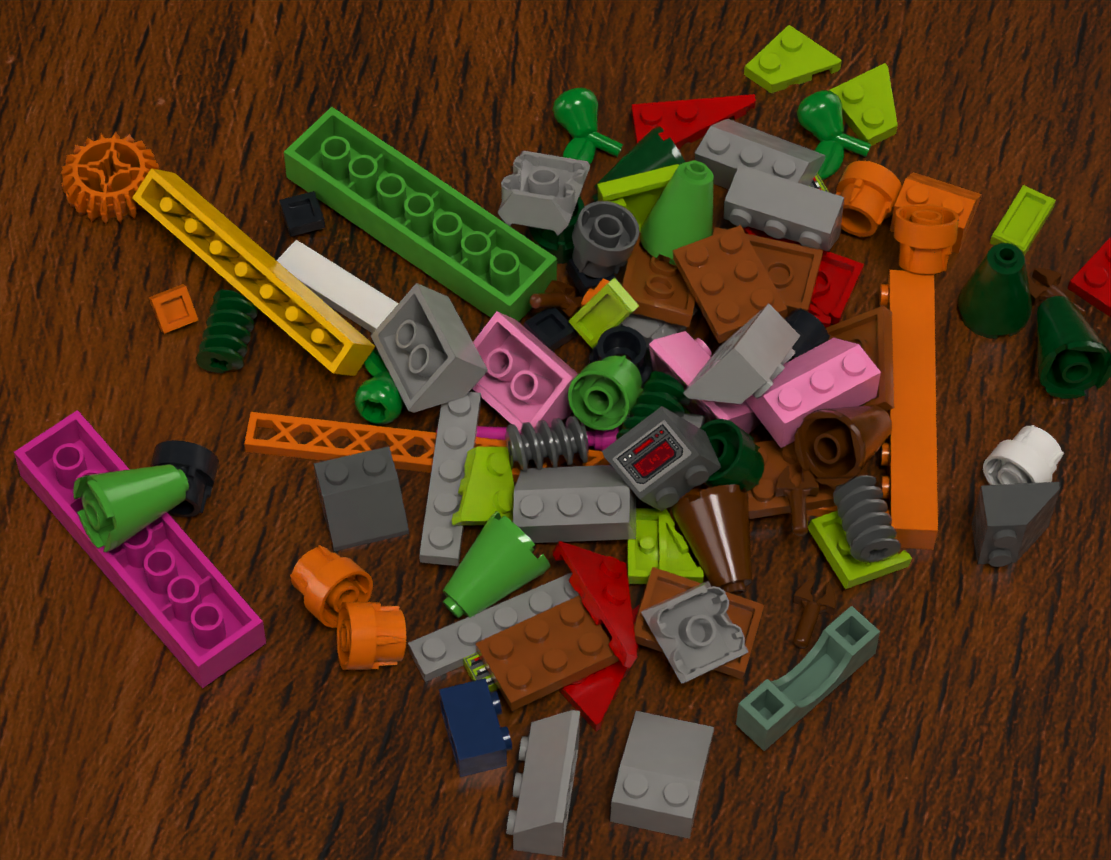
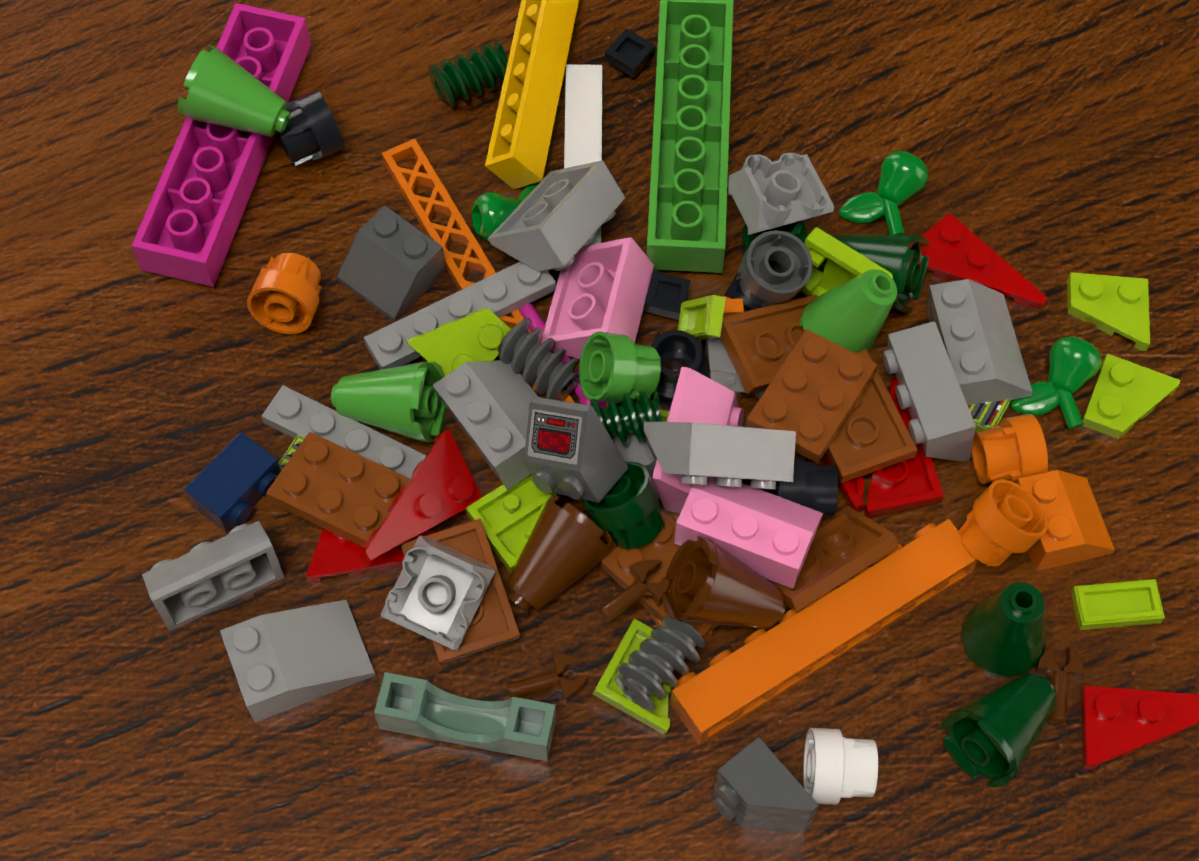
camera: 55 degrees right, 5 degrees up
(173, 308) = (466, 26): orange plate -> none
(370, 635) = (259, 350): orange piece -> none
(557, 295) = (702, 282): reddish brown bar -> none

